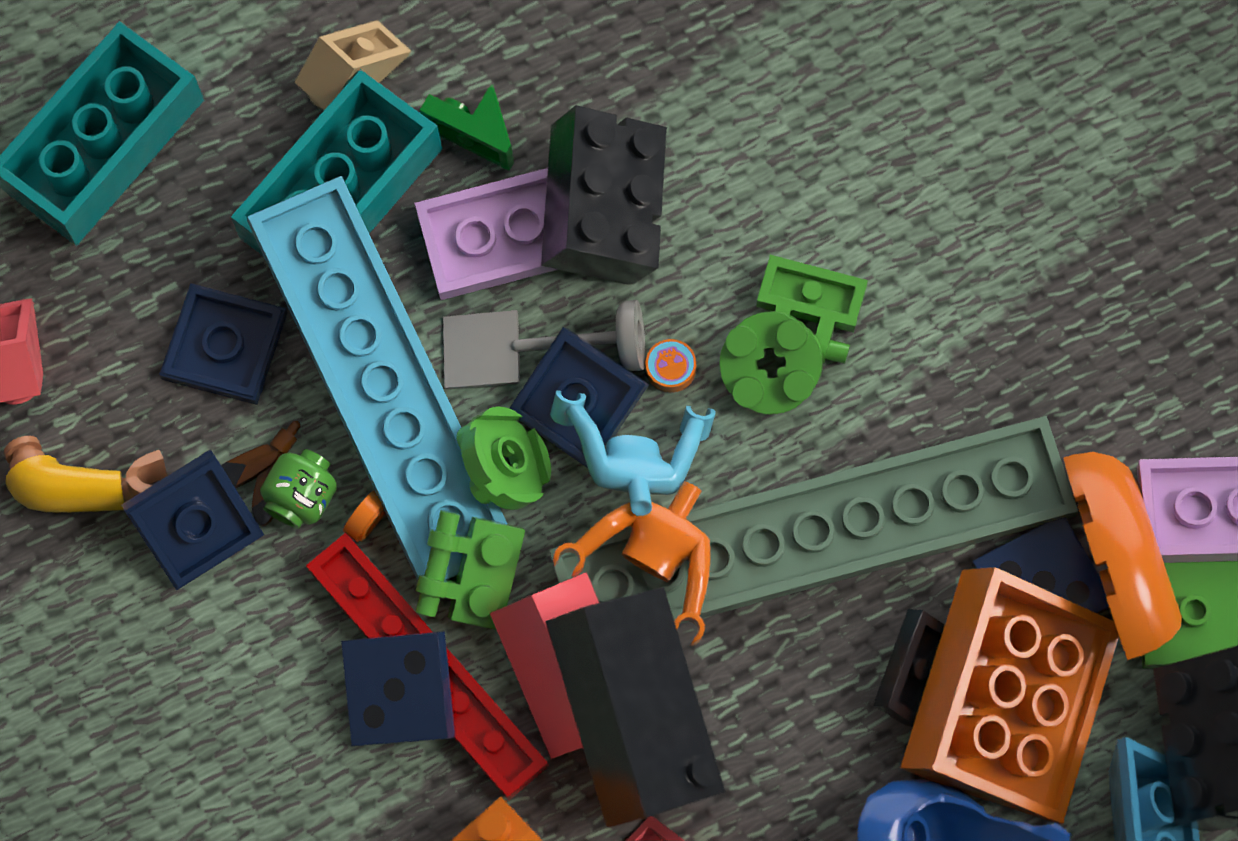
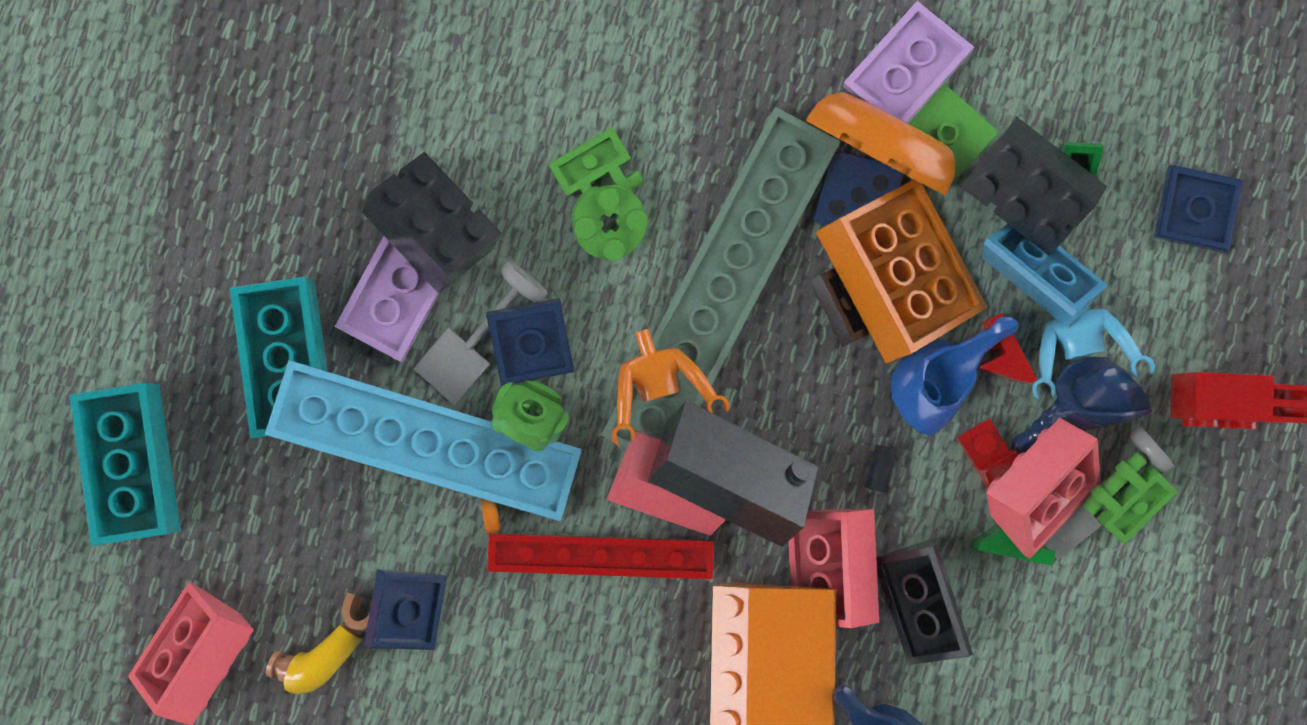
camera: 55 degrees left, 15 degrees up
(223, 344) = (315, 501): dark blue tile -> none
(258, 464) = (409, 539): reddish brown piece -> none
(298, 488) = (440, 537): bright green head -> none
(343, 53) = (210, 288): tan slope -> none
(398, 689) = (602, 584): dark blue tile -> none
(479, 133) = (328, 252): green slope -> none
(483, 574) = (582, 482): bright green plate -> none
(632, 461) = (597, 348): medium azure piece -> none
(671, 365) = (557, 274): tile -> none

